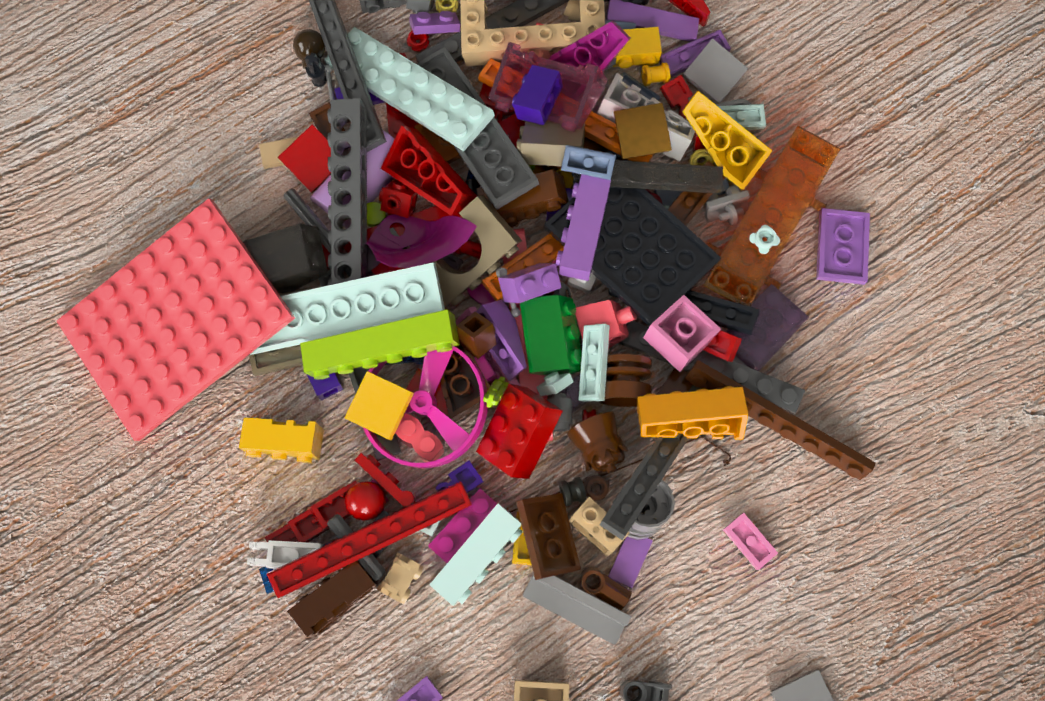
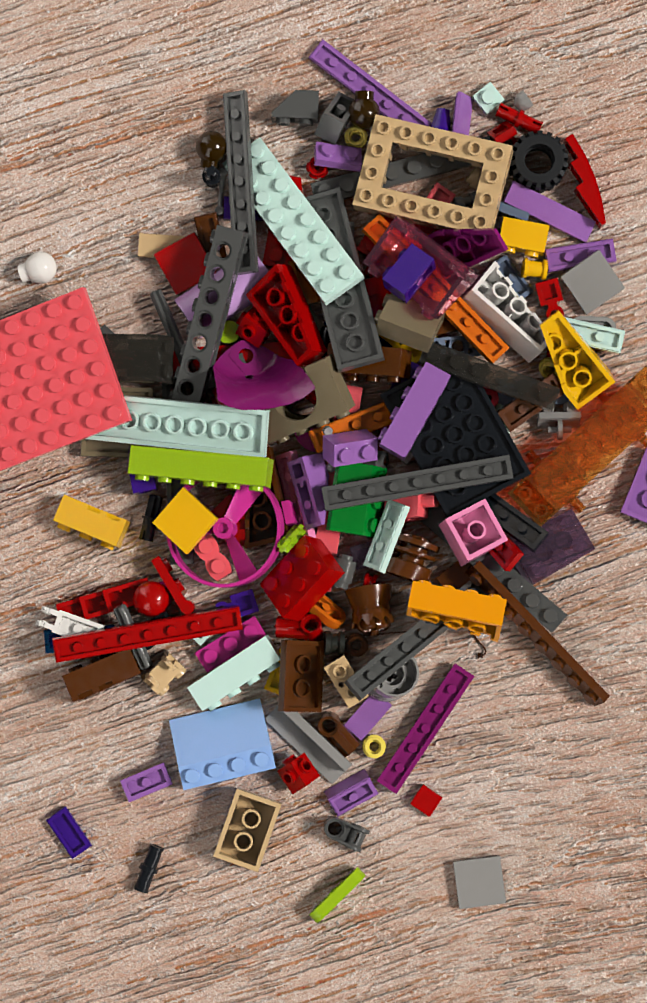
camera: 20 degrees right, 10 degrees up
(164, 203) = (38, 268): none -> white piece
(343, 426) = (152, 511): none -> black axle
(476, 334) = (288, 483): reddish brown brick -> none
(484, 637) = (222, 744): none -> light blue slope
(529, 488) = (298, 629): none -> red piece
(554, 383) = (346, 544): light aqua plate -> none
(556, 462) = (329, 613): none -> orange plate
(575, 643) = (297, 772): none -> red brick
(588, 162) = (434, 354): sand blue slope -> none
(609, 297) = (417, 483): none -> dark grey plate
(637, 648) = (351, 792): none -> medium lavender slope
(642, 130) = (497, 331): pearl gold slope -> none
(655, 590) = (374, 754): none -> light yellow plate
(695, 555) = (425, 728): none -> magenta plate
(720, 632) = (426, 800): none -> red tile
(750, 541) = (477, 731): bright pink plate -> none
(767, 232) = (568, 467): light aqua plate -> none

